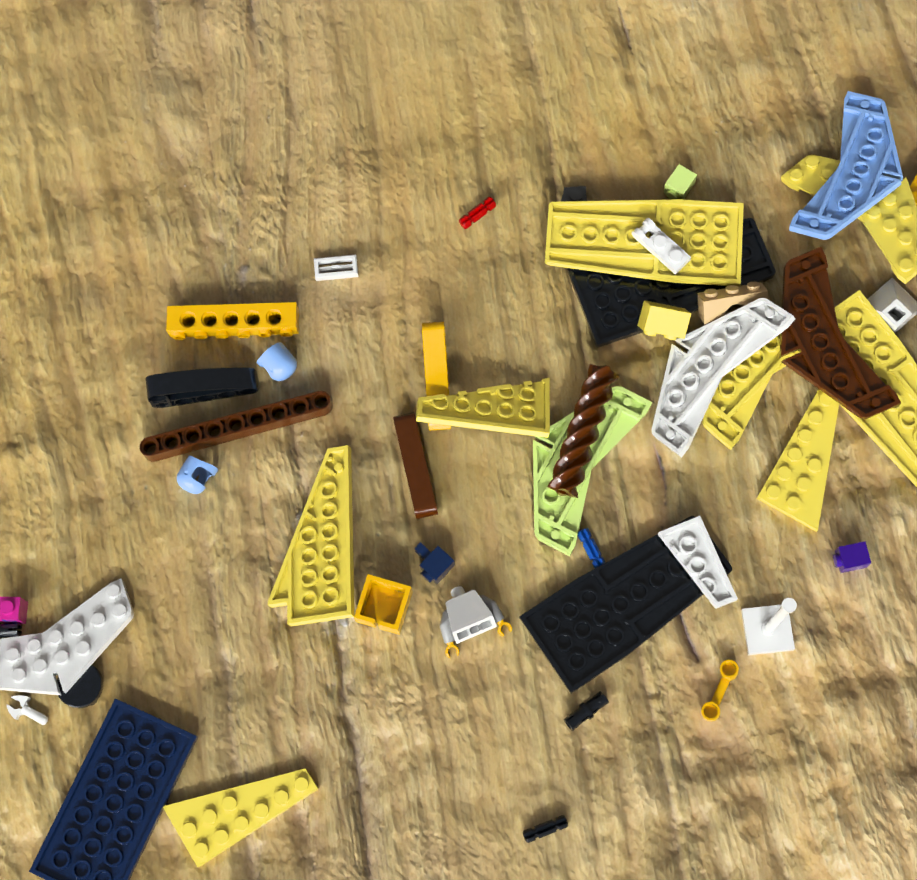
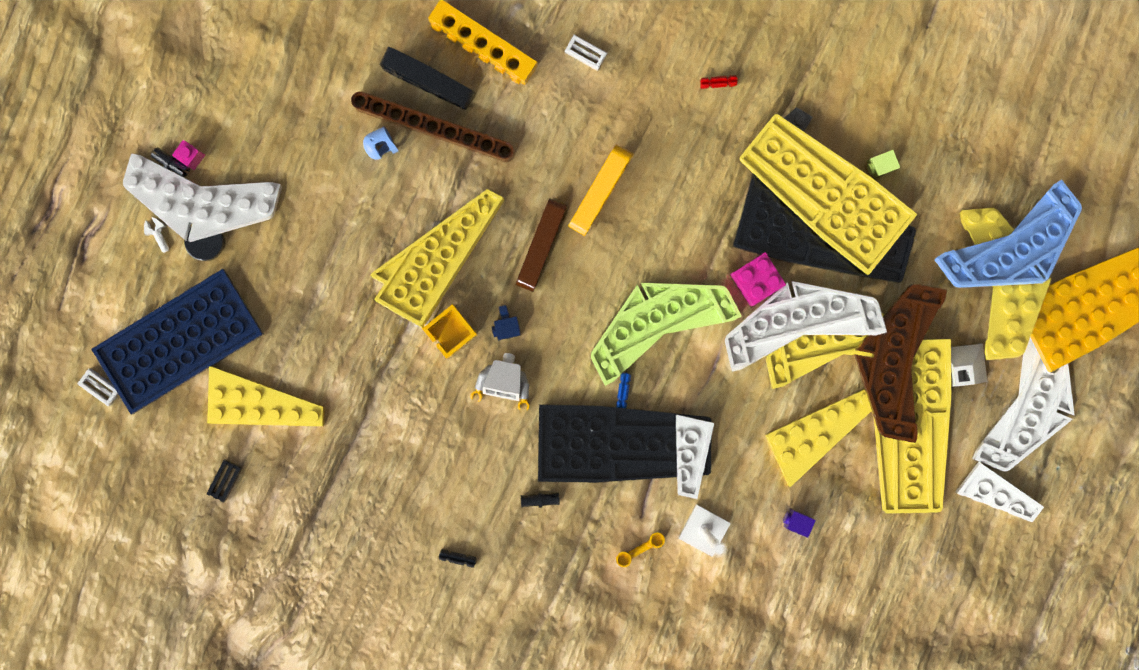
camera: 25 degrees right, 15 degrees up
(278, 362) = (494, 99): light blue helmet -> none
(499, 408) = (629, 247): light yellow wing -> none
(583, 430) = (676, 305): reddish brown piece -> none
(642, 358) = (758, 279): none -> dark pink brick
(661, 246) = (832, 206): white plate -> none
(664, 320) = (793, 262): light yellow brick -> none
(715, 303) = (840, 275): tan arch -> none

